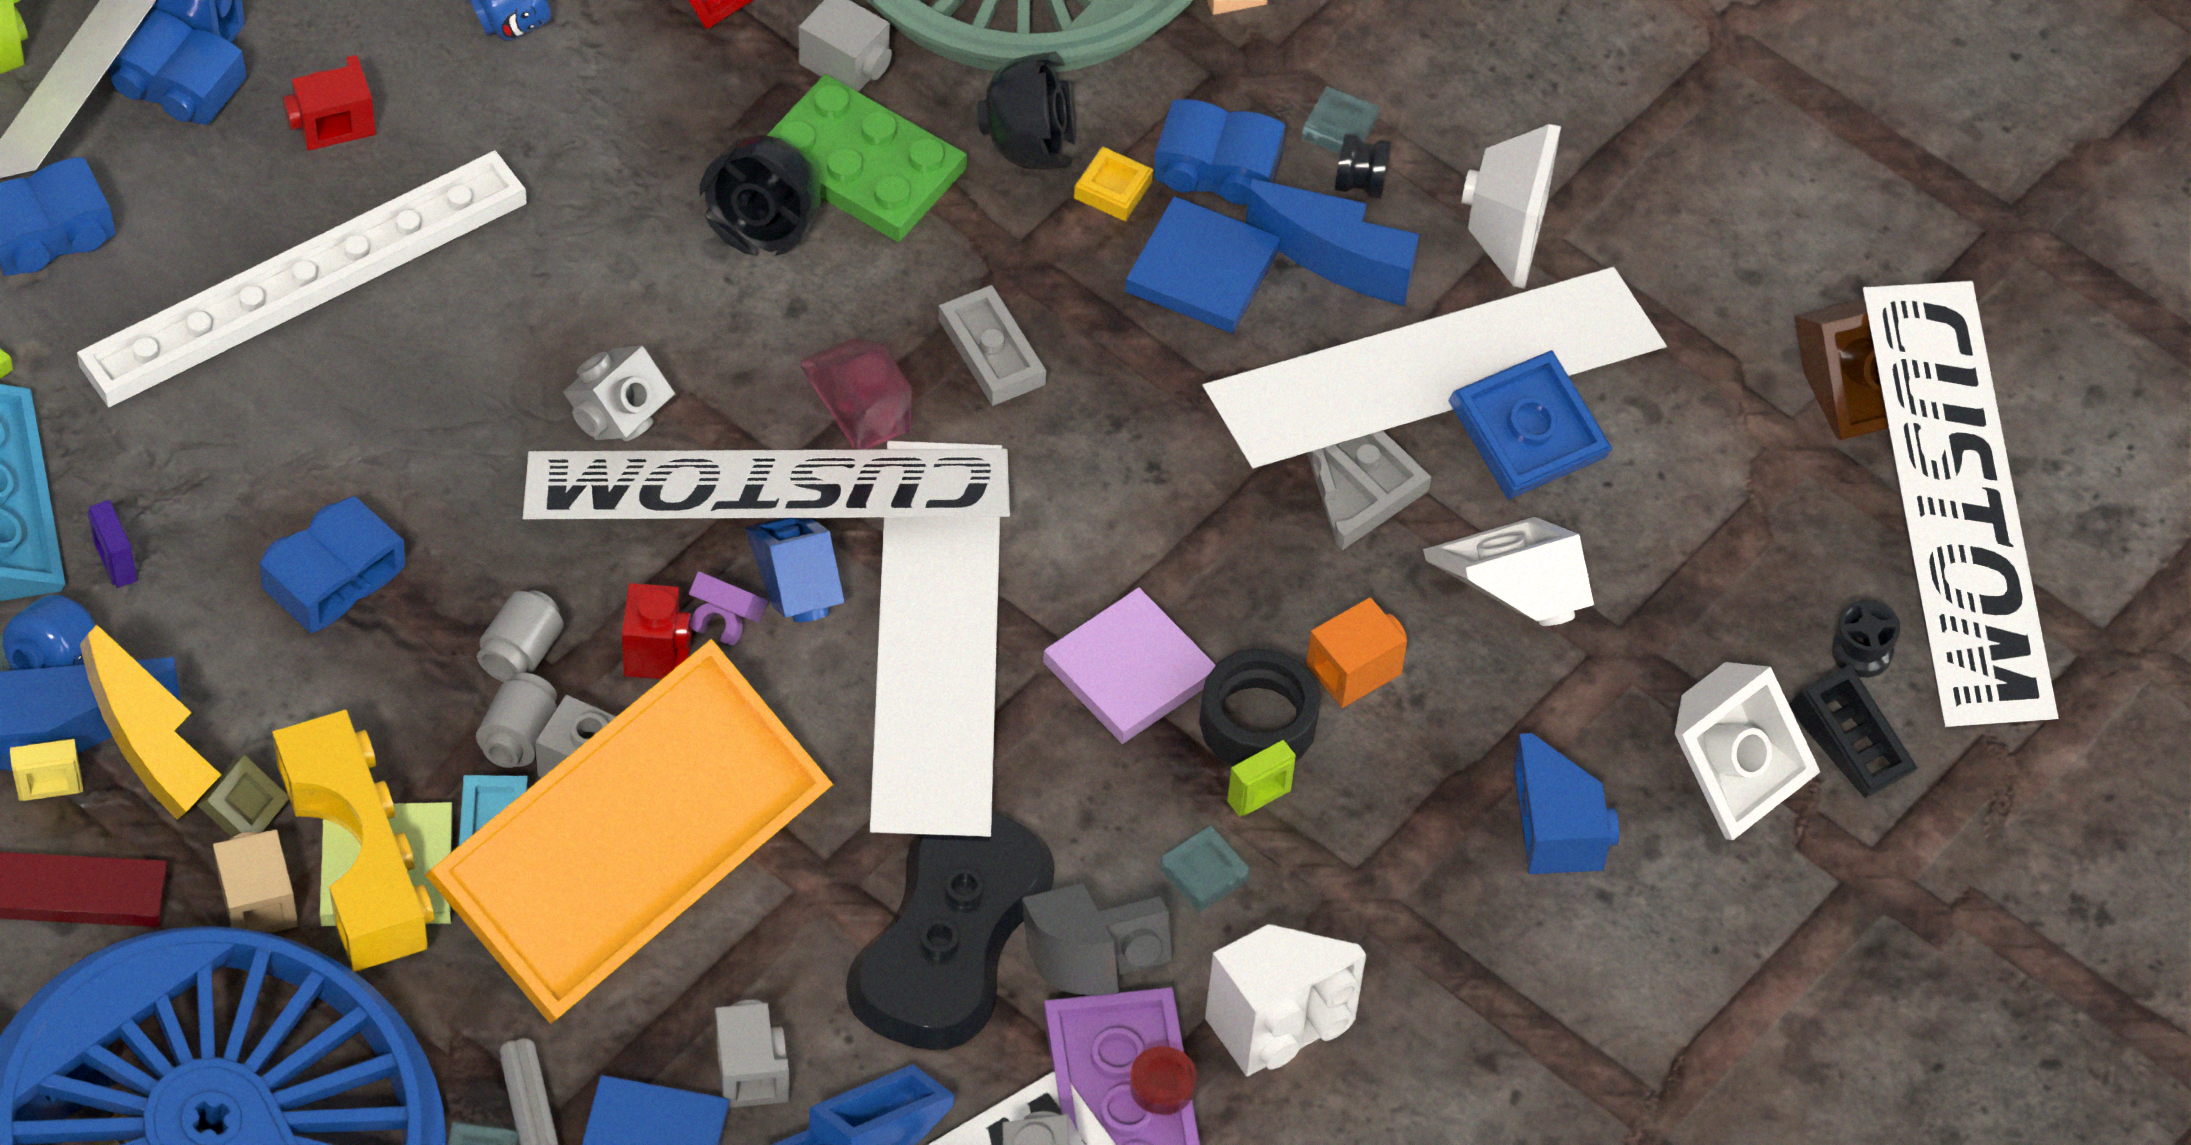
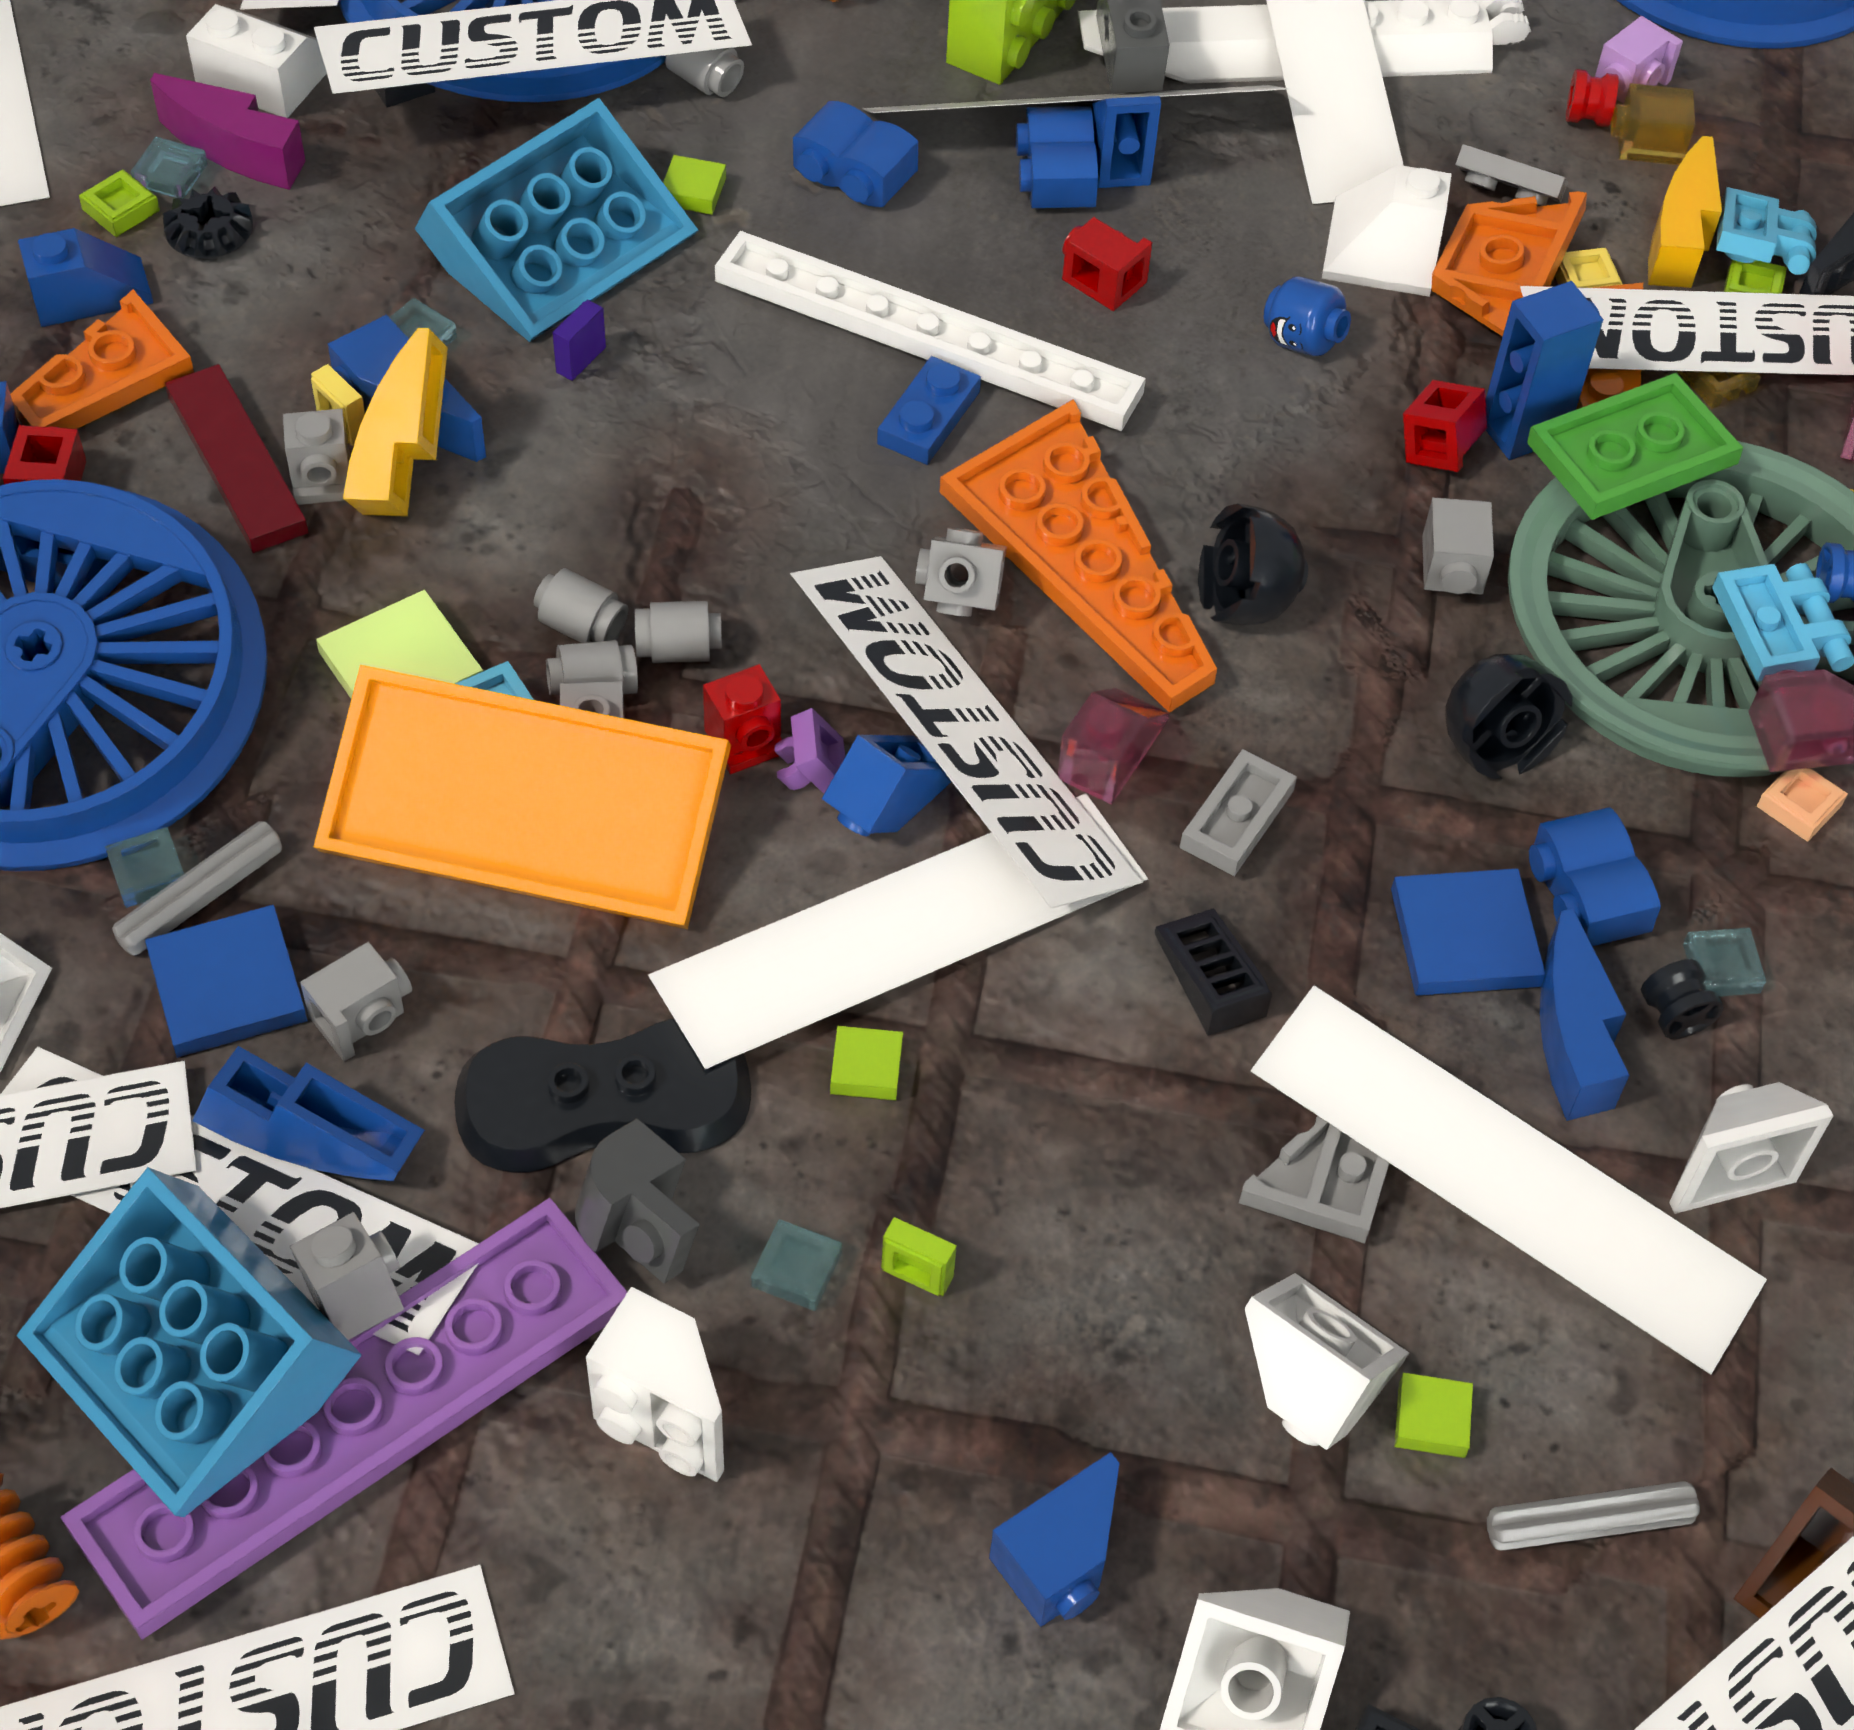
camera: 60 degrees right, 0 degrees up
(47, 634) = (470, 343): blue head -> none
(102, 812) = (317, 455): none -> light grey brick
(243, 798) = (390, 535): olive plate -> none
(255, 882) = (315, 582): tan brick -> none
(330, 779) = (441, 570): yellow arch -> none
(331, 563) = (659, 479): blue brick -> none
(393, 327) = (929, 410): none -> blue plate
(437, 696) = (579, 607): none -> light grey brick
(579, 297) = (1084, 549): none -> orange wing
(870, 157) = (1364, 628): bright green plate -> none
(1051, 726) = (866, 1063): none -> lime tile
(1113, 183) = (1497, 820): yellow tile -> none
(1129, 665) = (978, 1092): lavender tile -> none
(1140, 466) = (1215, 1010): none -> black slope
(1162, 1080) = (513, 1335): clear red tile -> none
(1258, 670) = (999, 1172): black tyre -> none
(1357, 652) = (1122, 1268): orange brick -> none
(1530, 424) = (1504, 1290): blue tile -> none
(1601, 528) = (1433, 1415): none -> lime tile
(1732, 482) = (1592, 1515): none -> light grey axle

